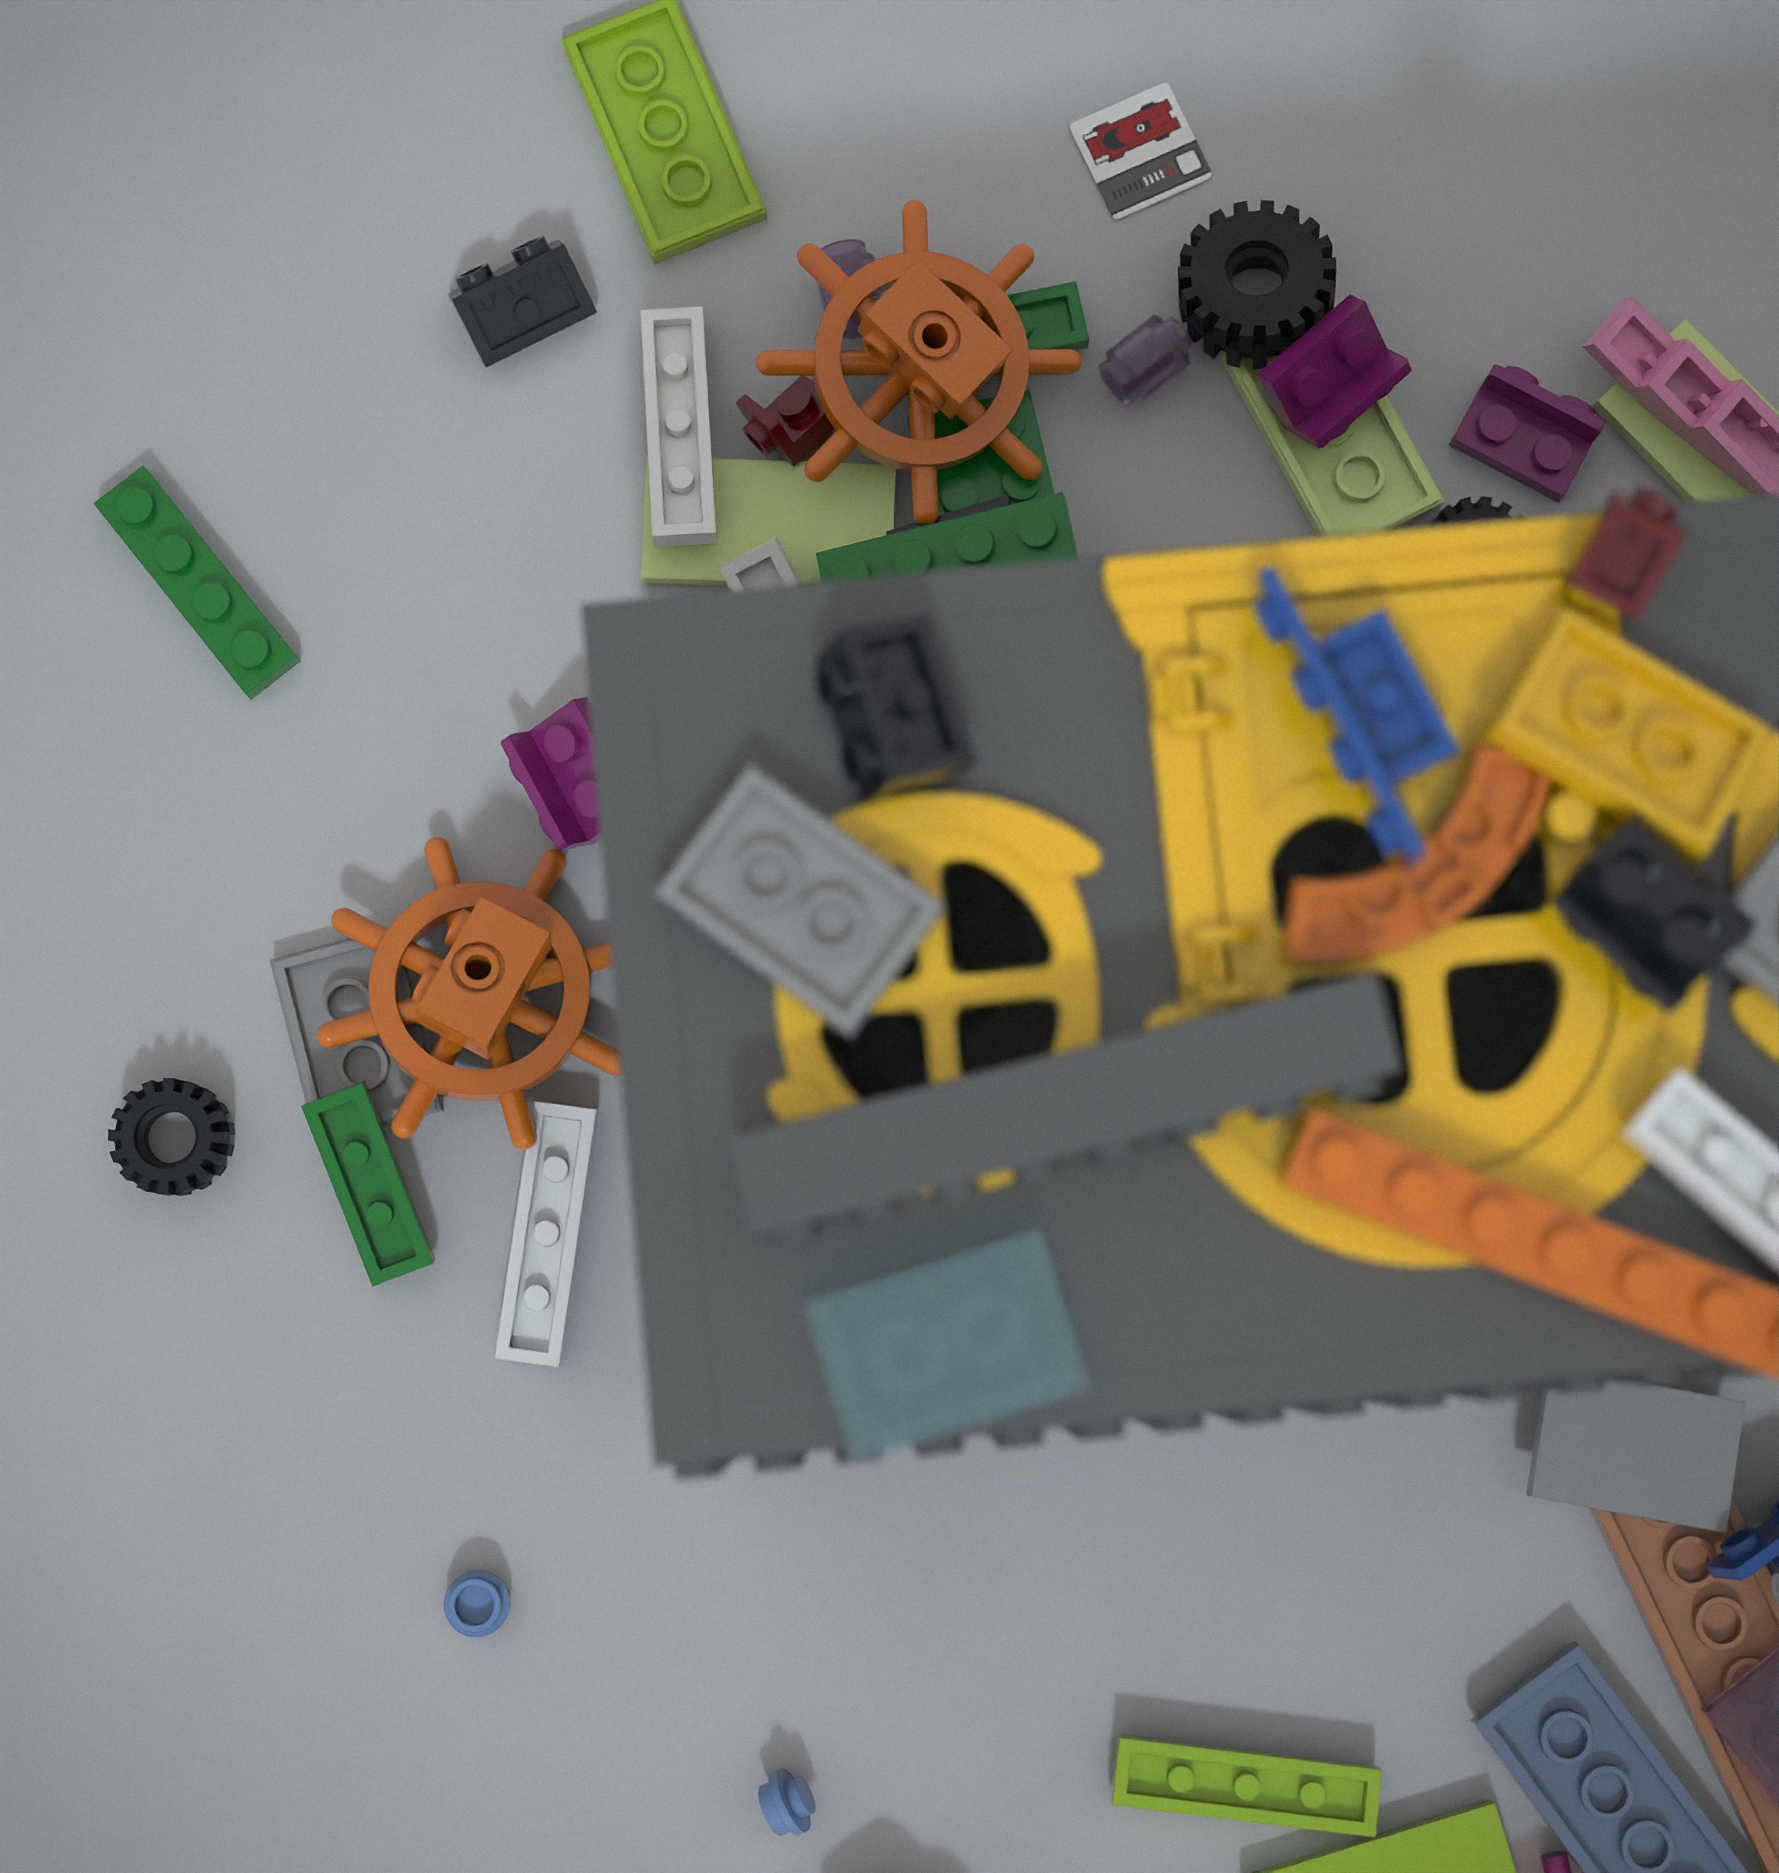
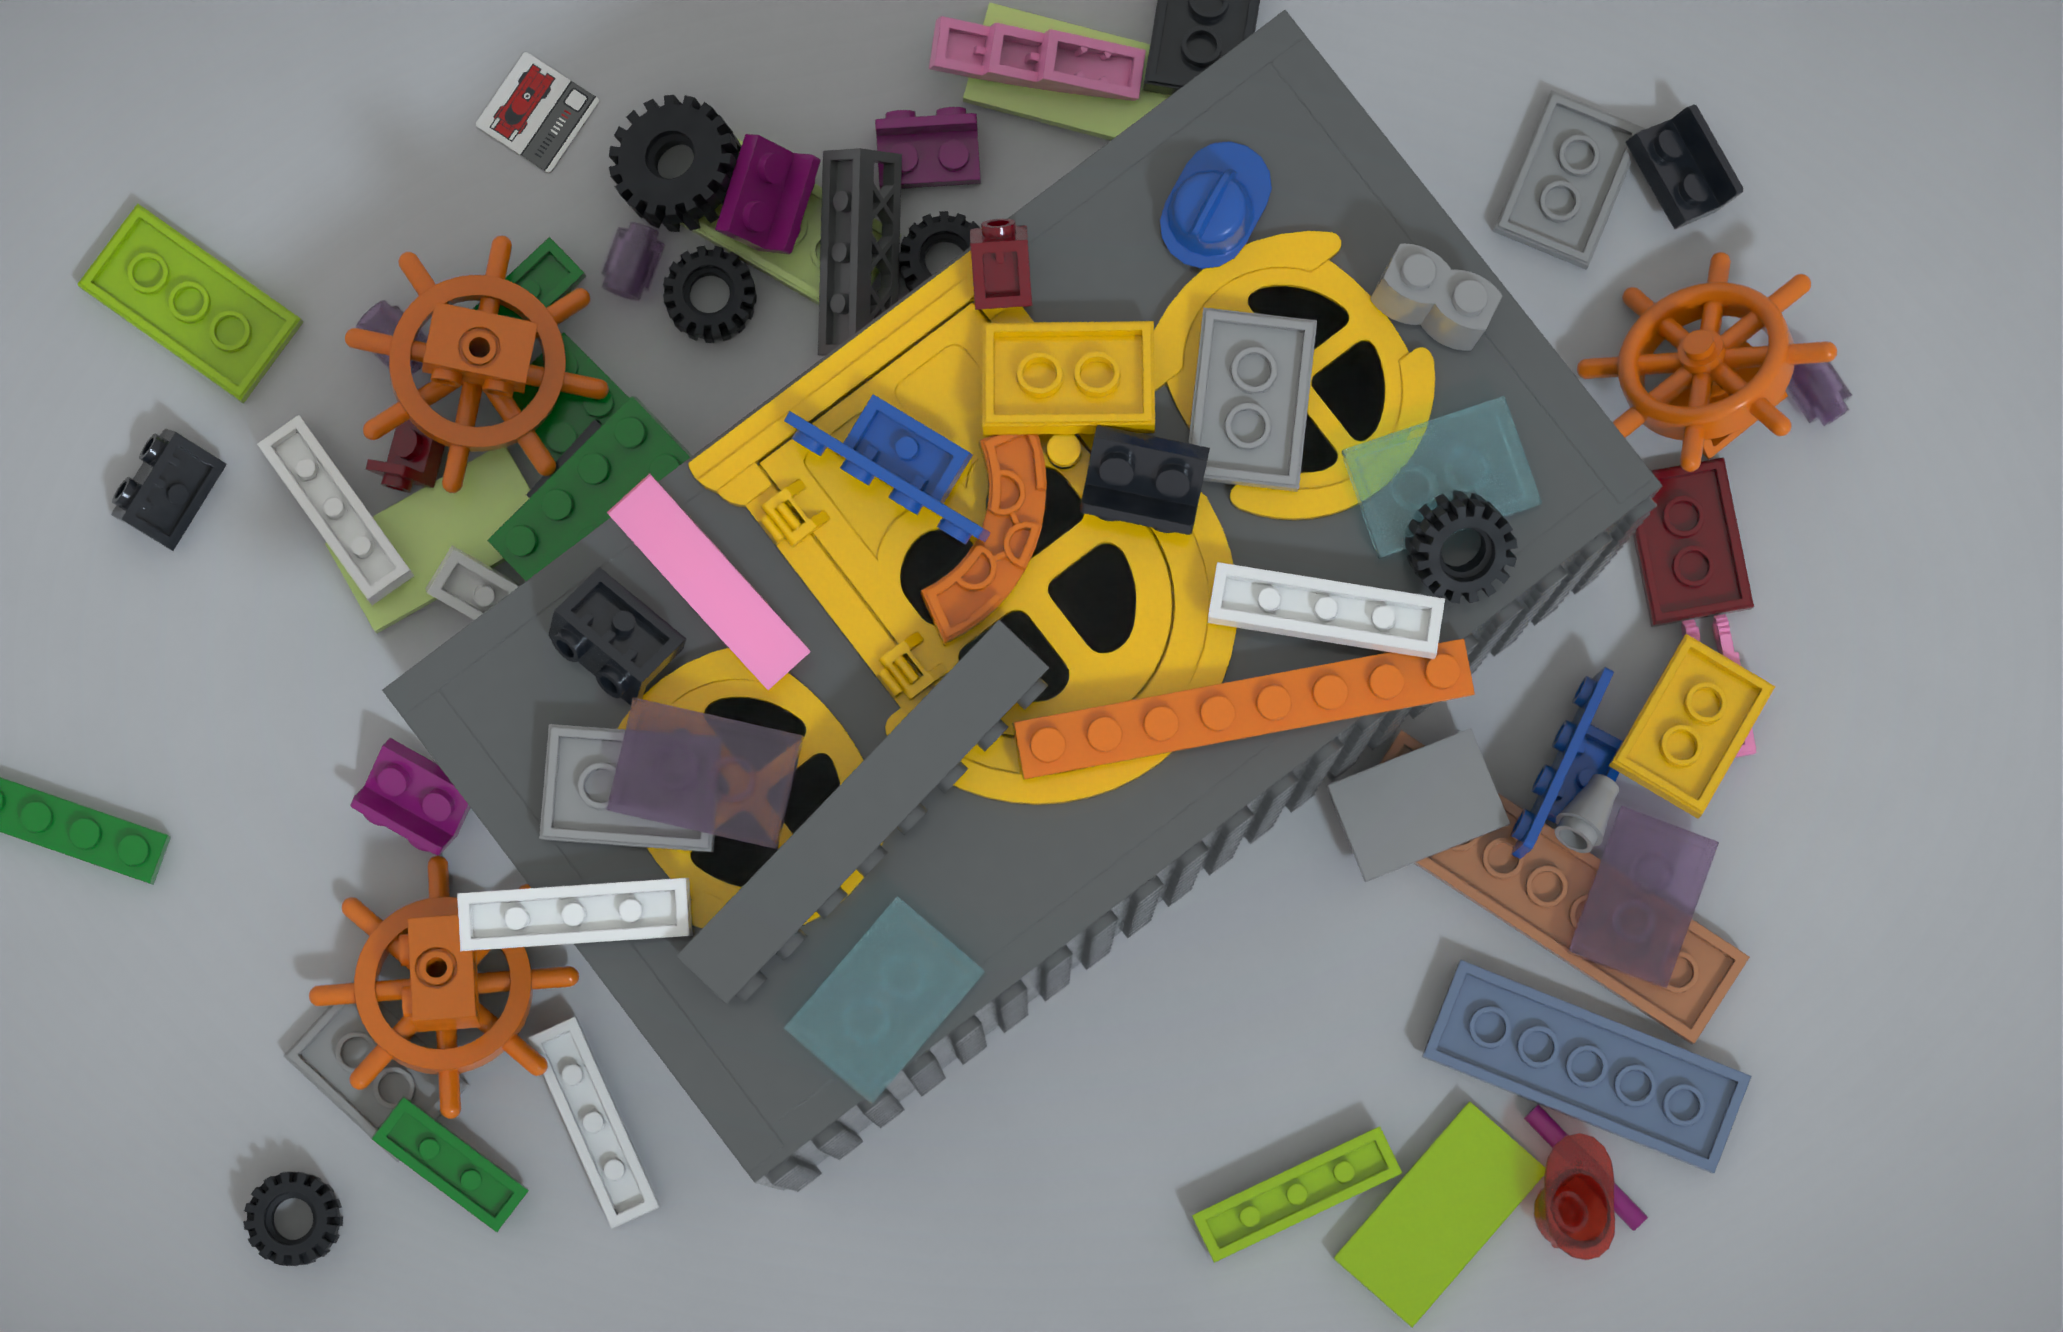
camera: 30 degrees left, 0 degrees up
(640, 1010) = (574, 914): none -> white plate
(900, 938) = (705, 773): none -> tile
(1047, 711) = (708, 581): none -> bright pink slope
(1215, 407) = (709, 263): none -> black tyre
(1407, 441) = (848, 245): none -> dark grey fence

